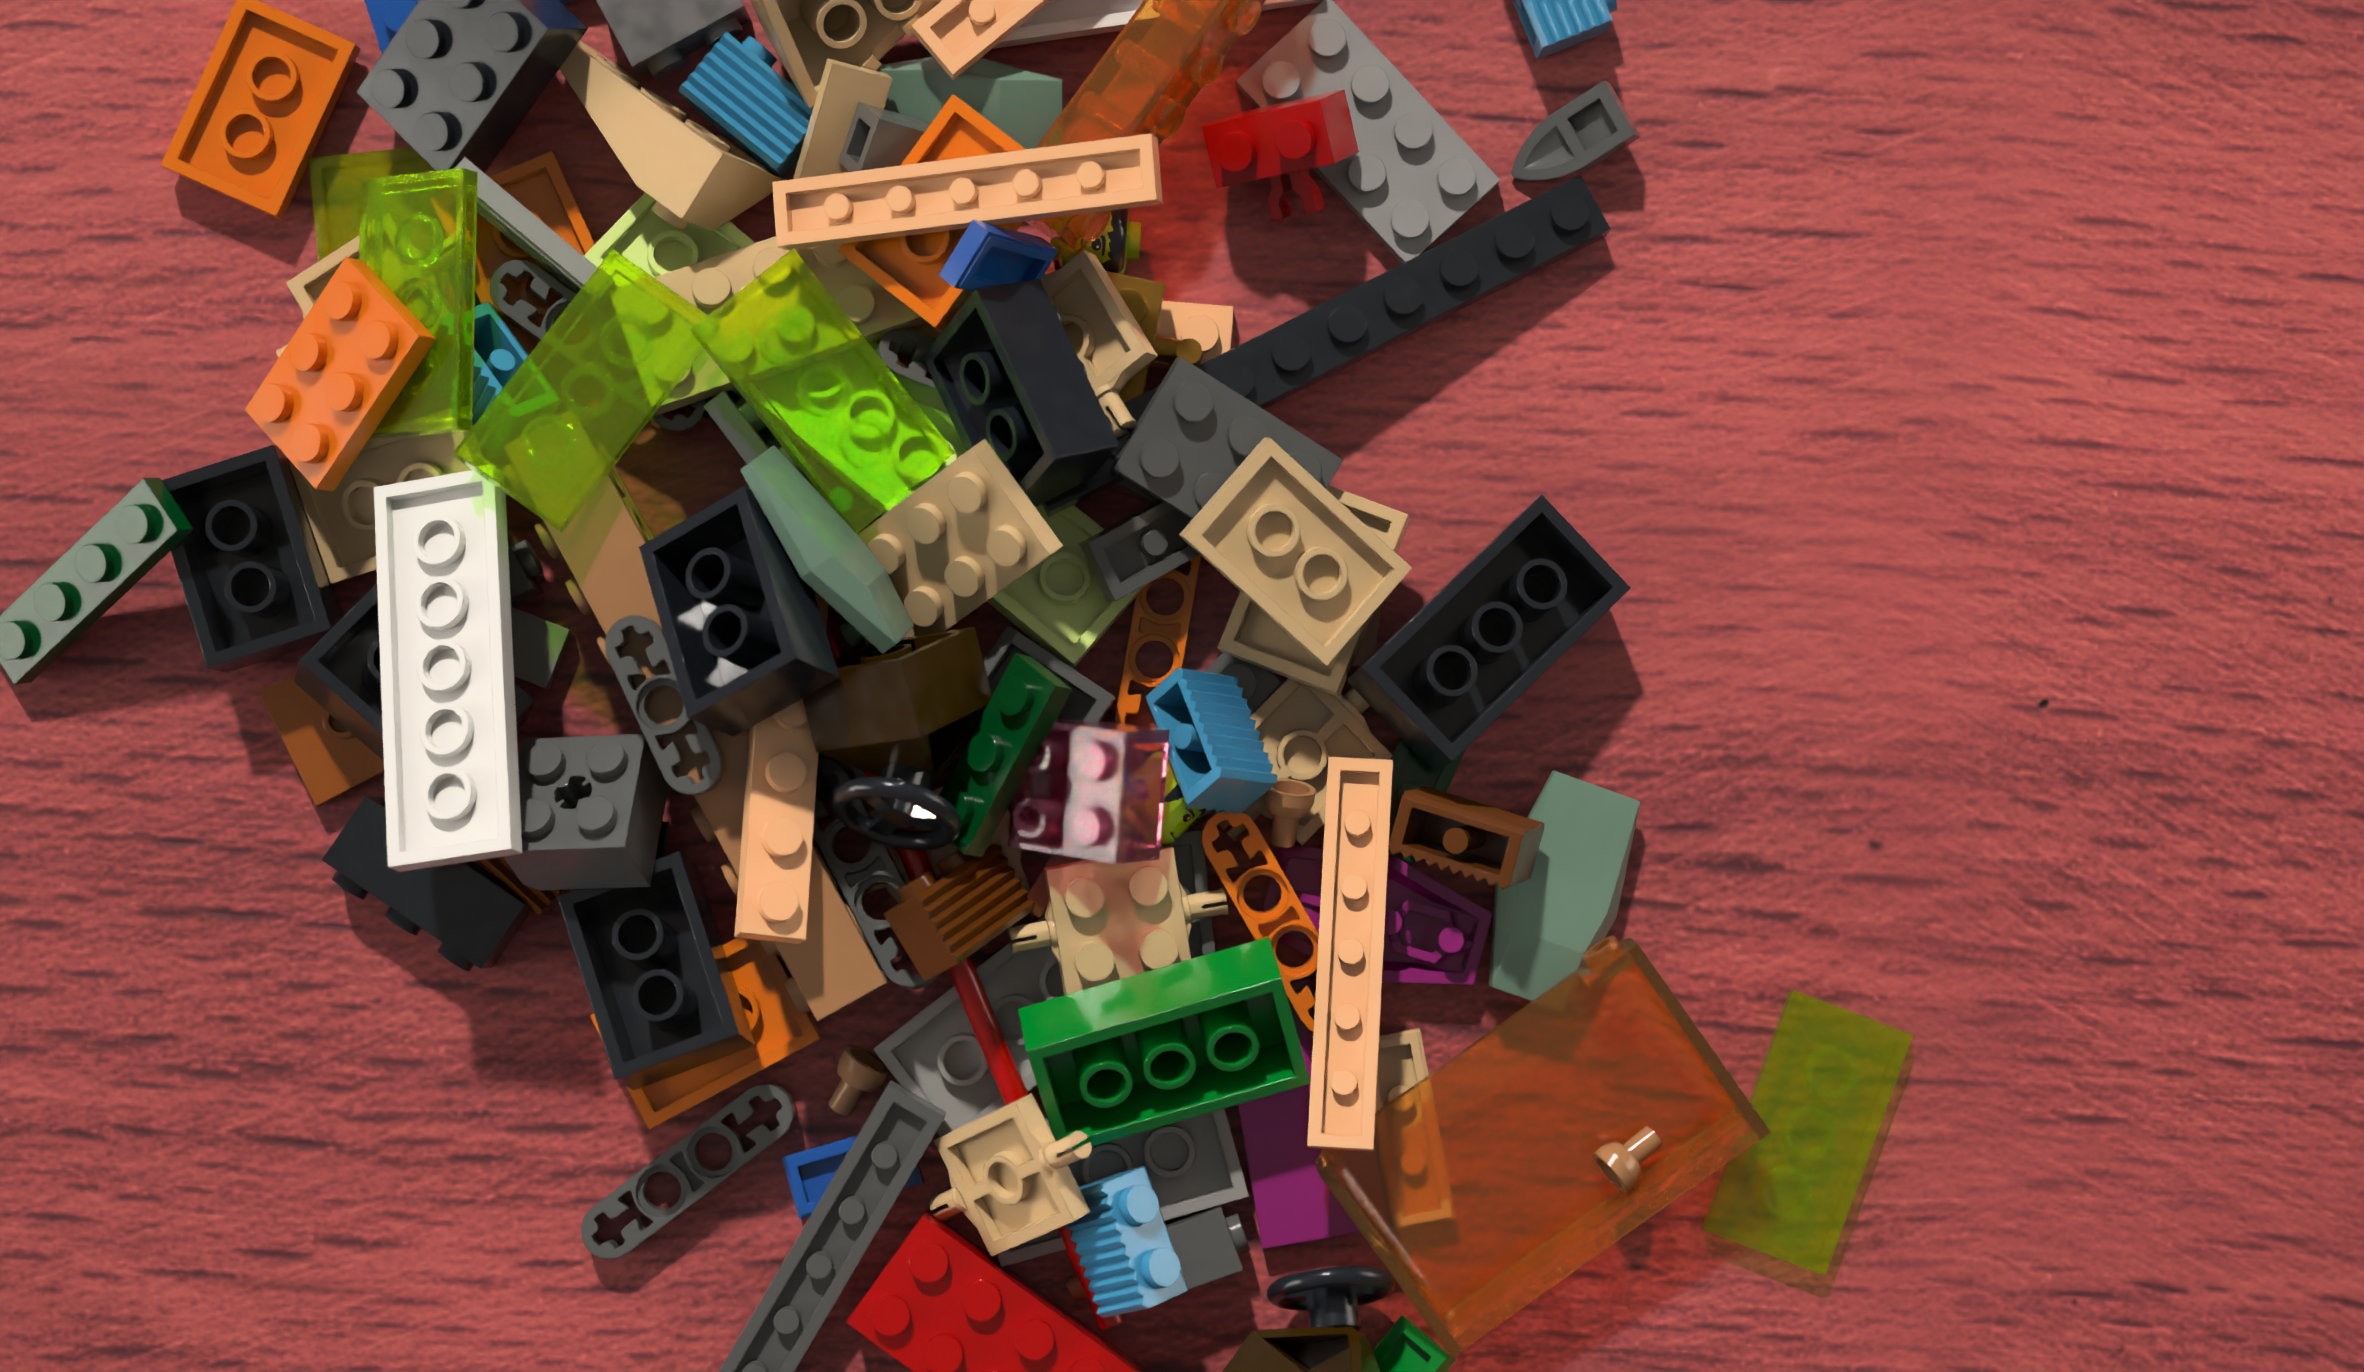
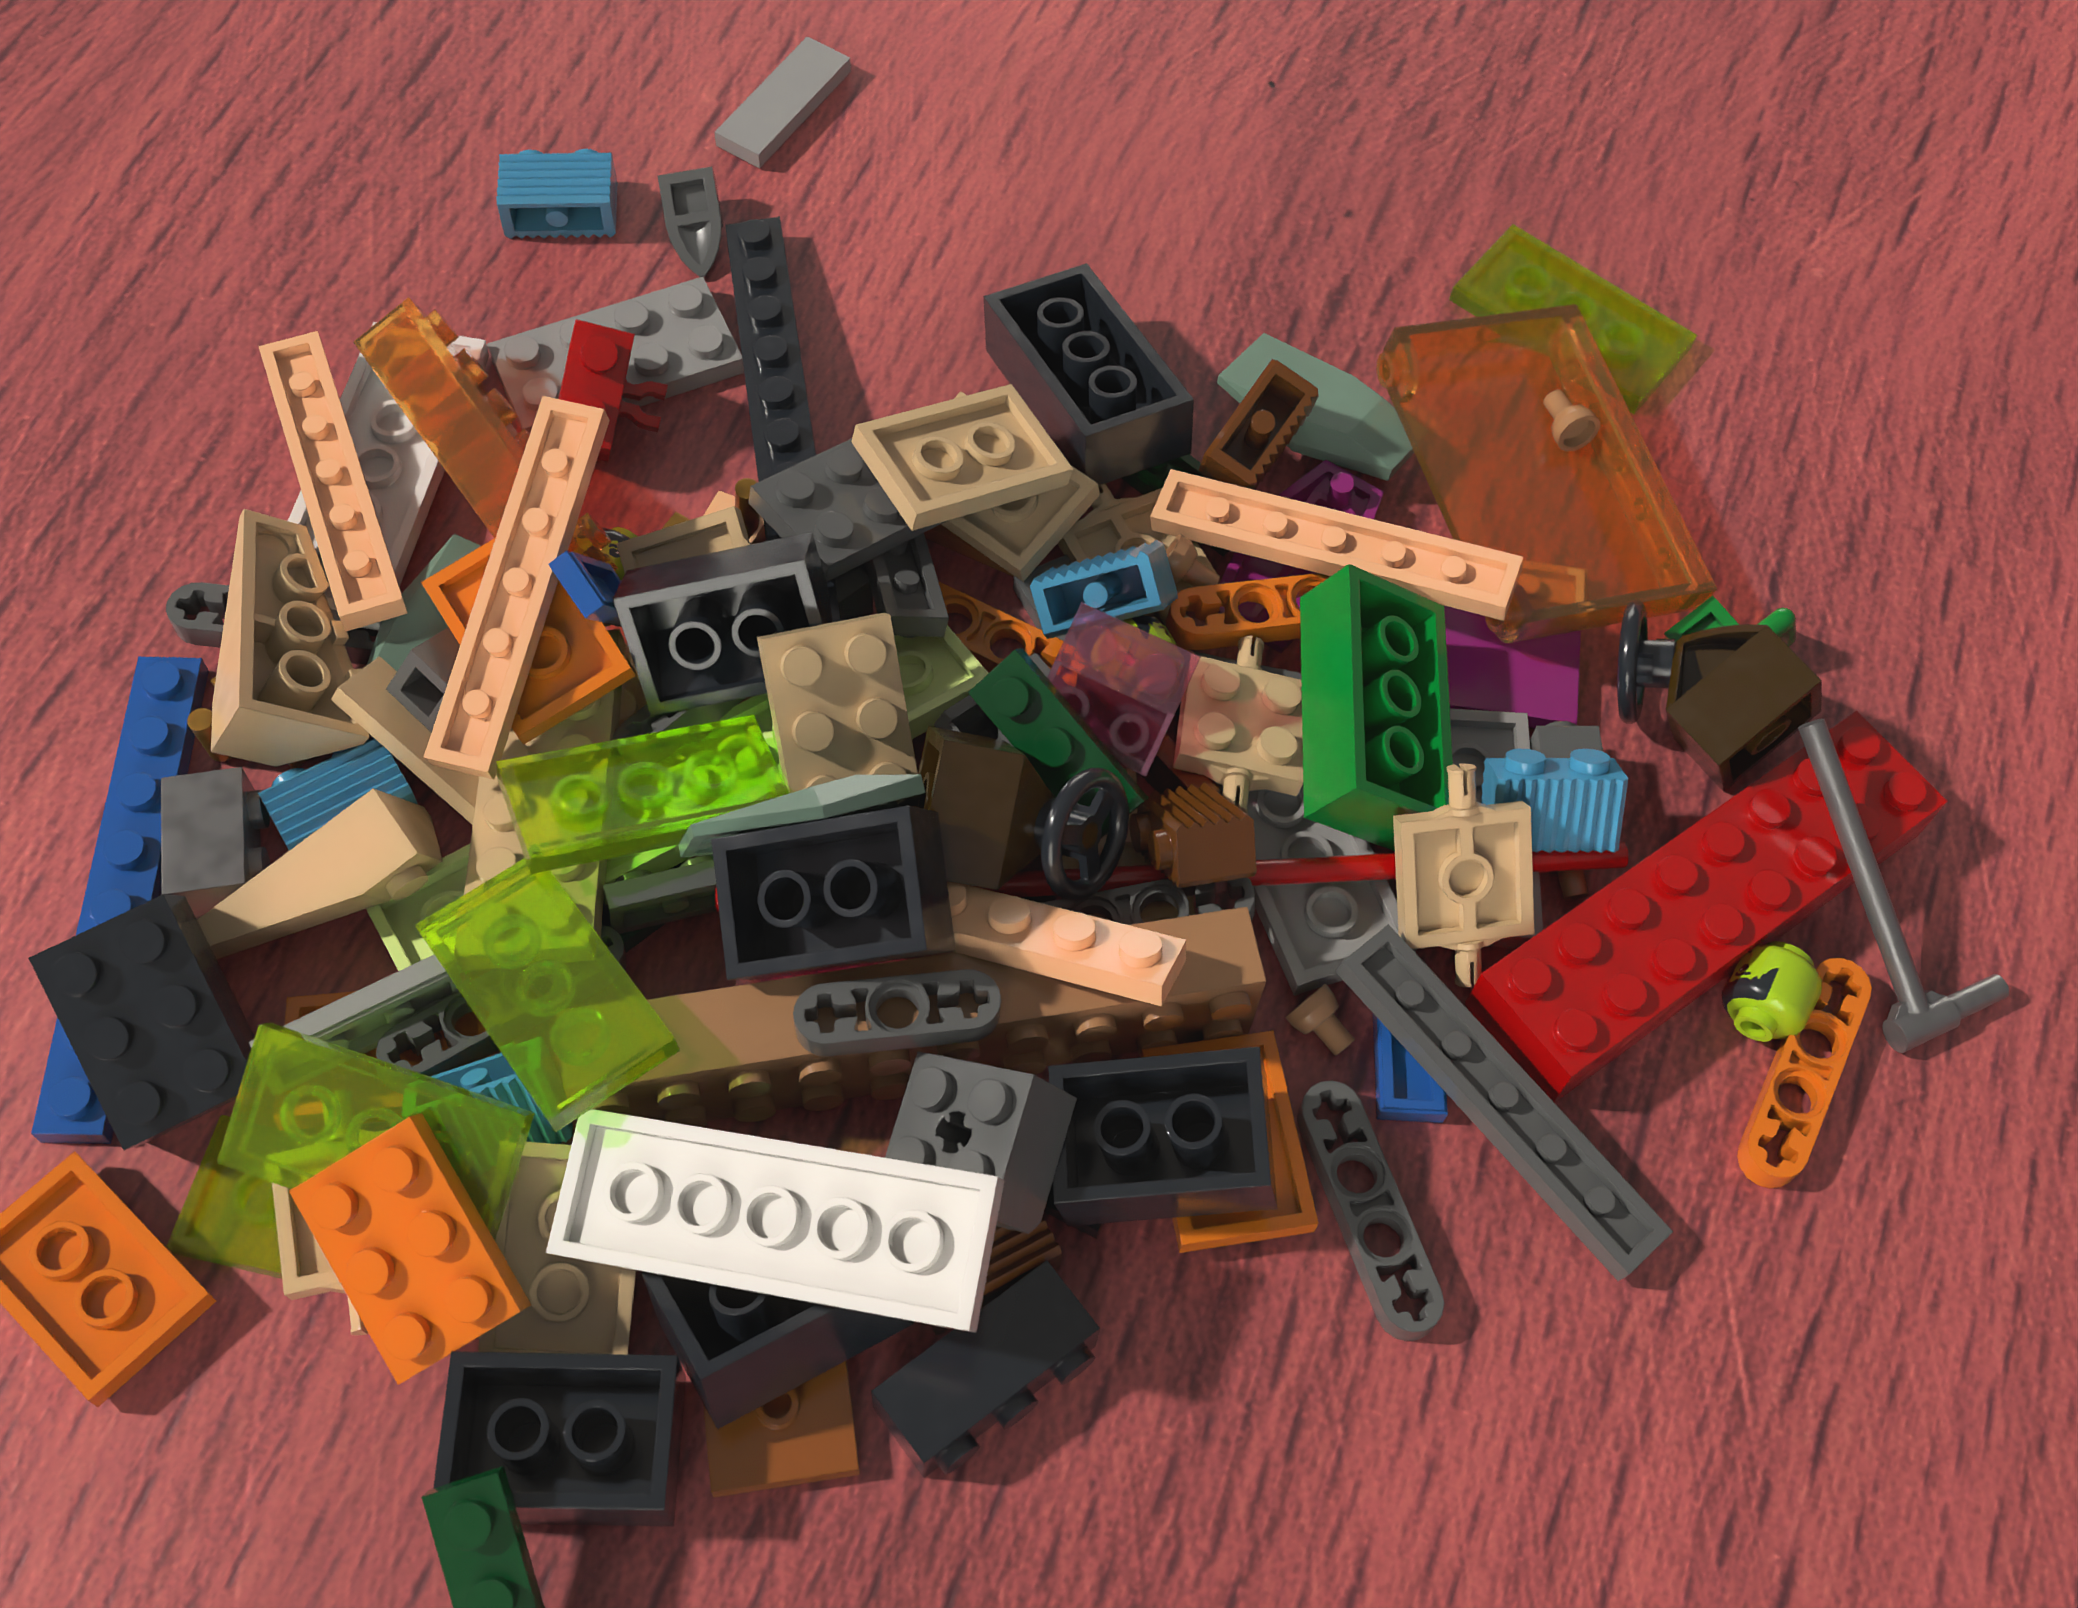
camera: 75 degrees left, 25 degrees down
(1791, 164) = (782, 102): none -> light grey tile

